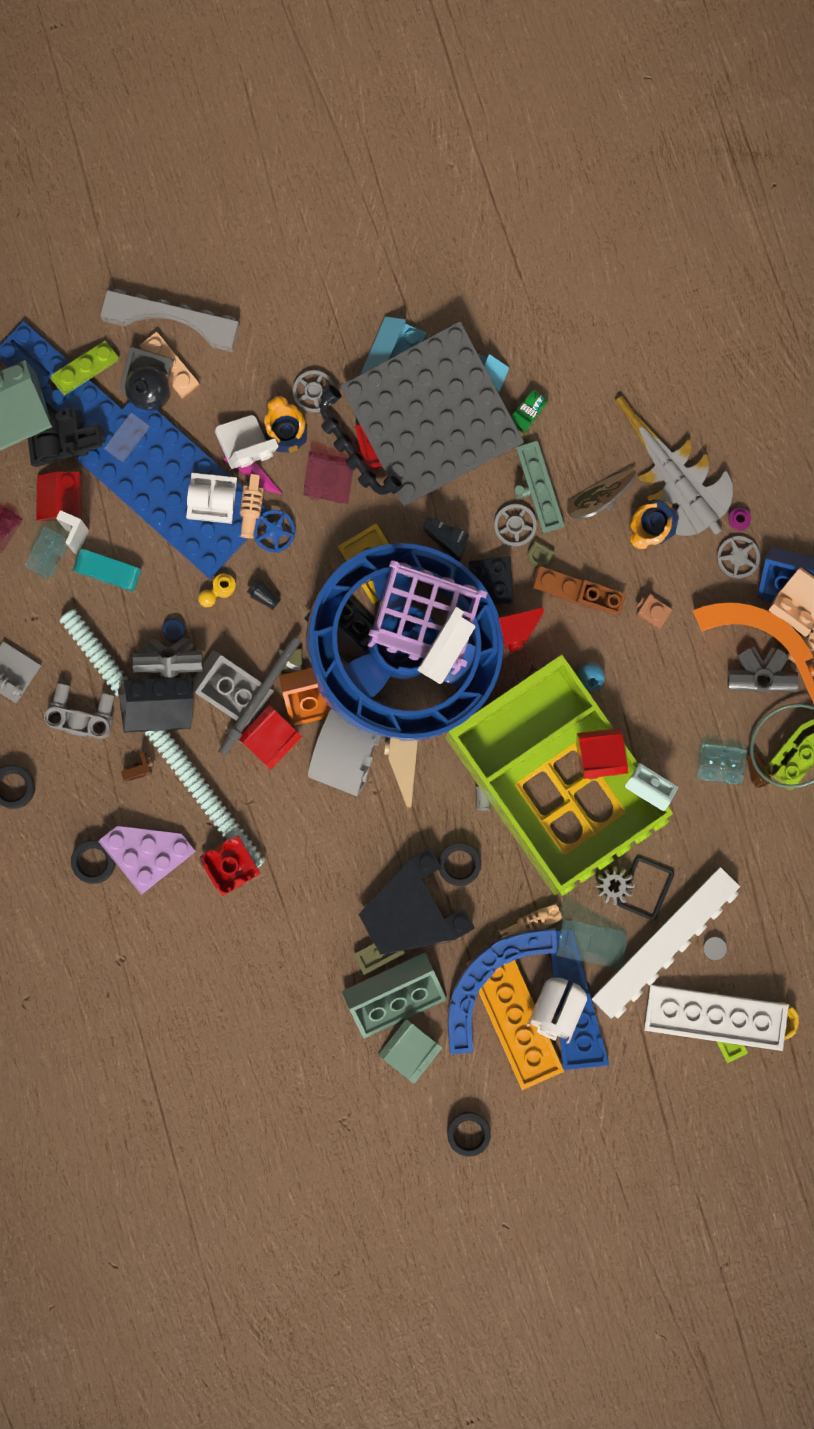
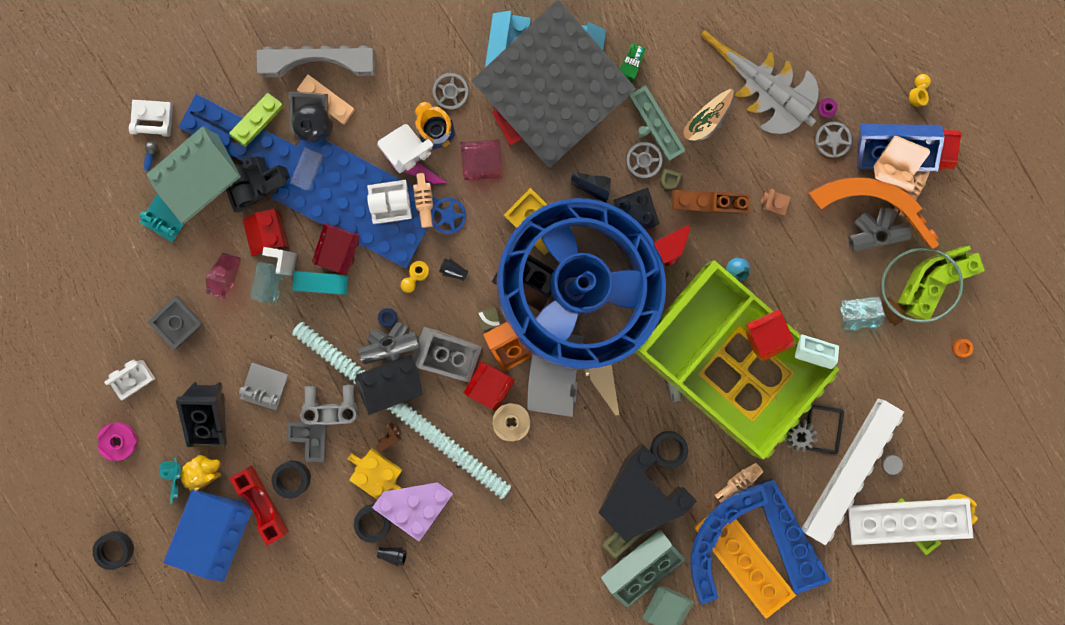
camera: 15 degrees left, 5 degrees up
(52, 744) = (313, 435): none -> dark grey plate
(107, 906) = (394, 556): none -> black cone
(110, 804) = (374, 473): none -> yellow plate
(136, 535) = (336, 249): none -> dark red slope
(229, 865) = (483, 500): red slope -> none
(234, 734) = (460, 390): dark grey bar -> none
(272, 781) = (509, 411): none -> tan plate
(344, 442) = (486, 127): black bar -> none
(416, 648) = (595, 289): lavender window -> none
(446, 646) = (620, 281): white panel -> none
(548, 1003) = (782, 550): white cylinder -> none
(592, 944) = (793, 487): clear light blue piece -> none
(653, 524) = (758, 130): piece -> none

